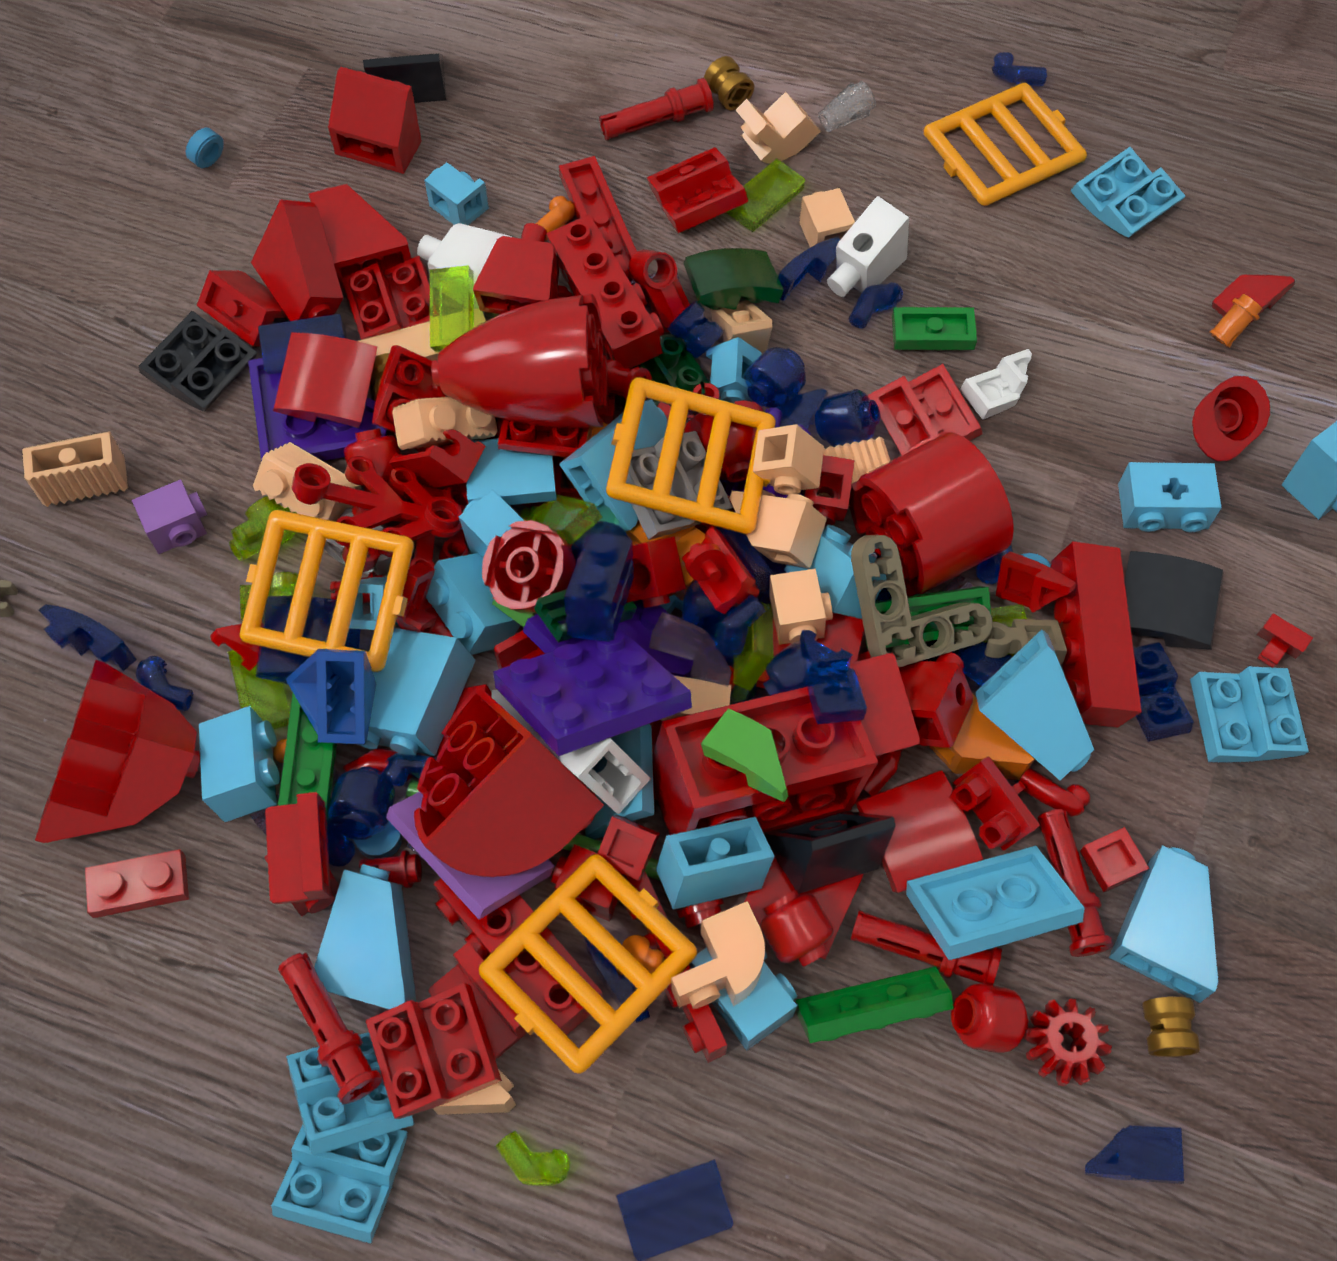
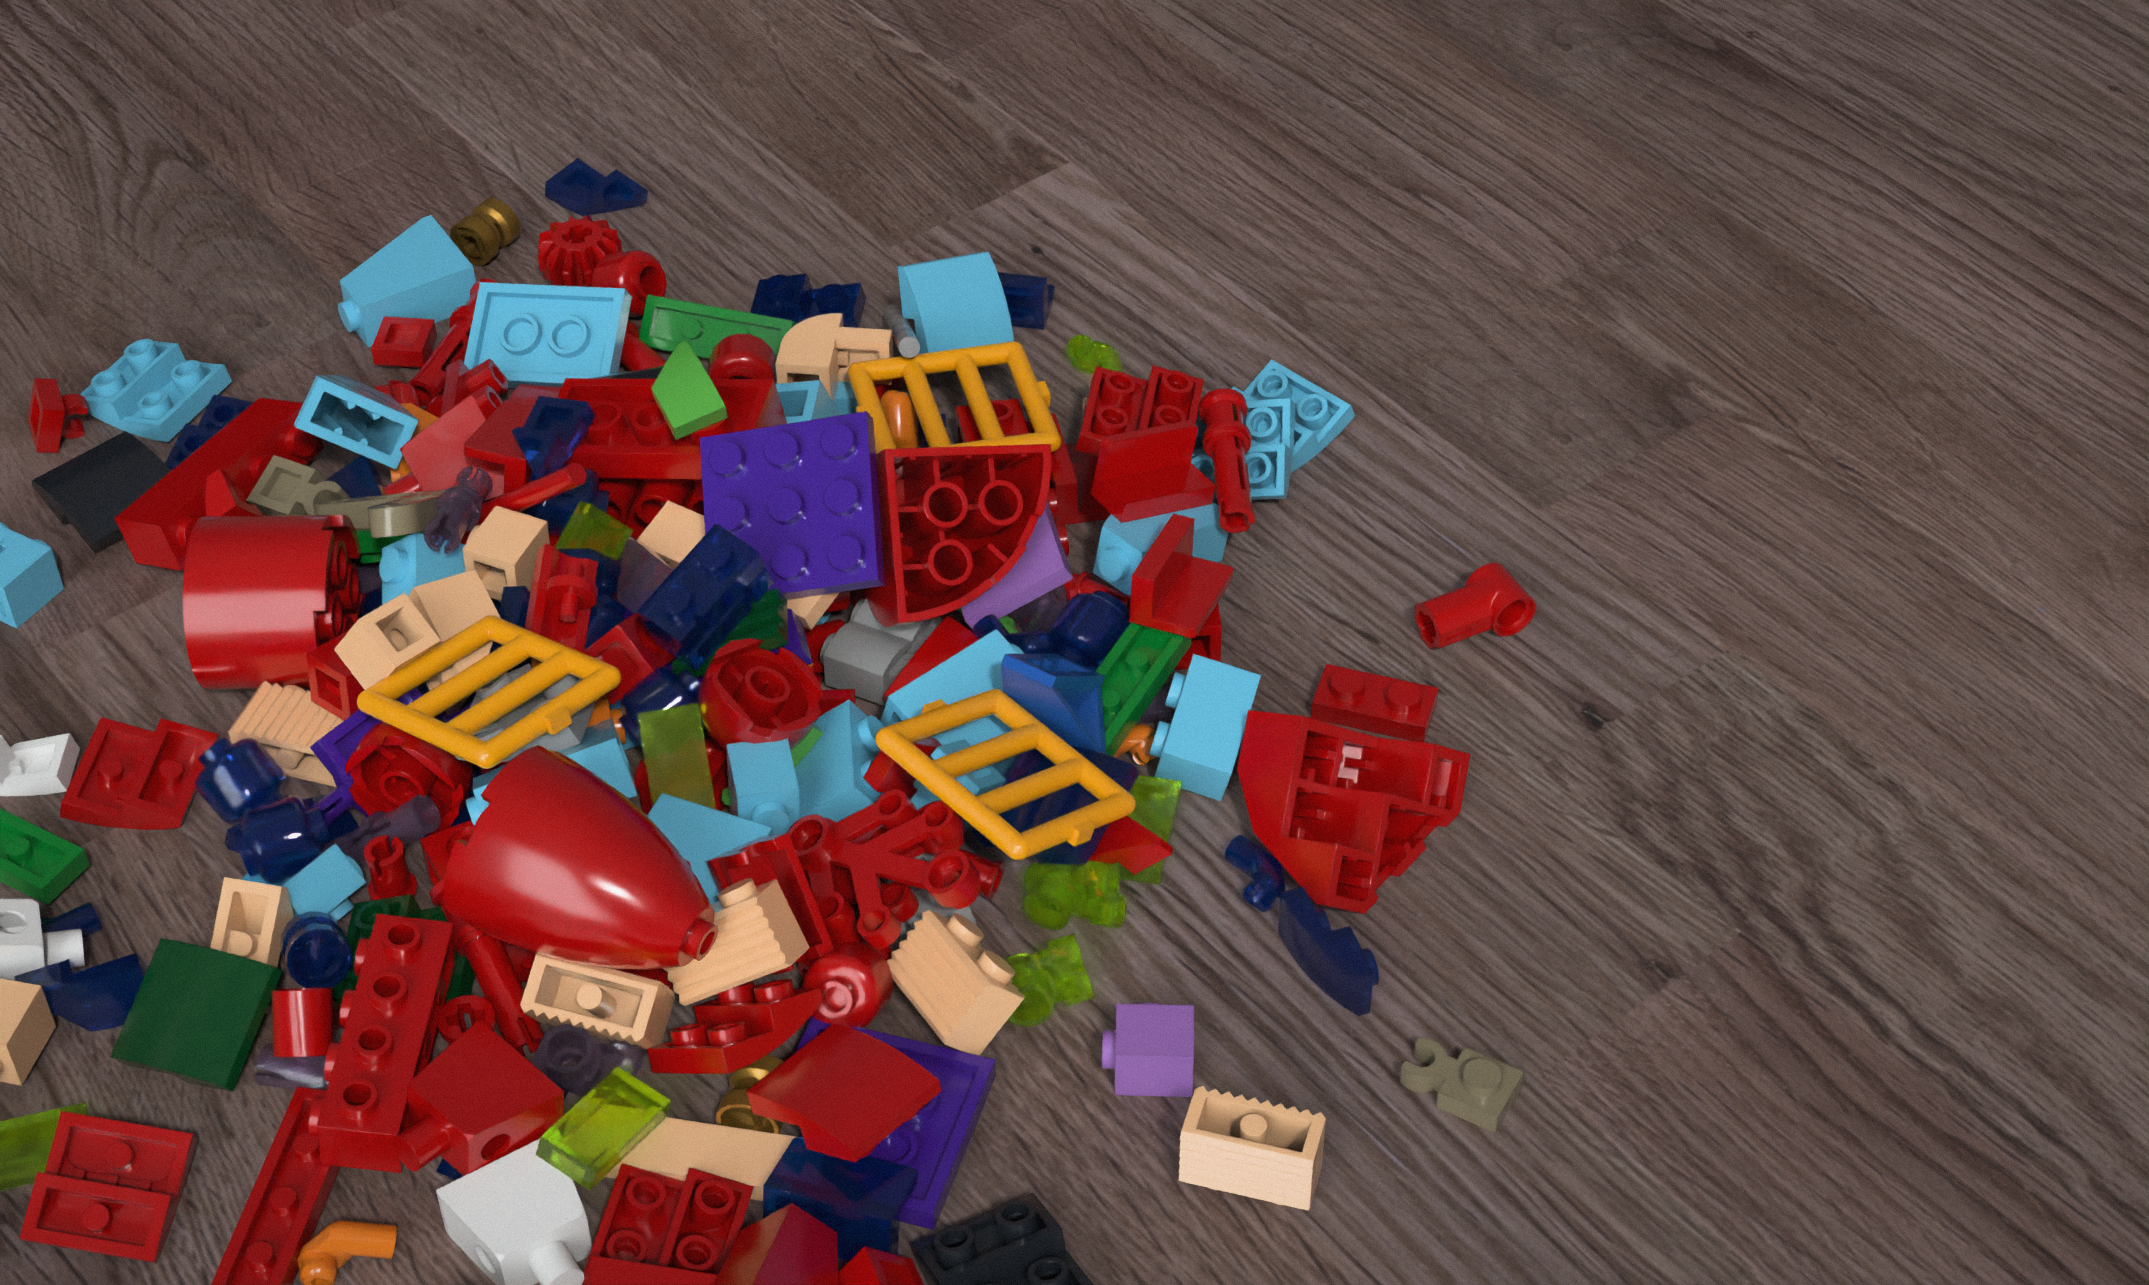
camera: 150 degrees left, 20 degrees down
(72, 1025) = (1486, 602): none -> red piece
(373, 955) = (1150, 473): none -> red panel
(672, 1114) = (955, 302): none -> medium azure slope
(701, 1055) = (901, 331): none -> light grey bar
(793, 627) = (538, 490): none -> red bar
(834, 1102) = (796, 300): none -> clear blue slope
(850, 602) = (458, 510): none -> clear purple pin

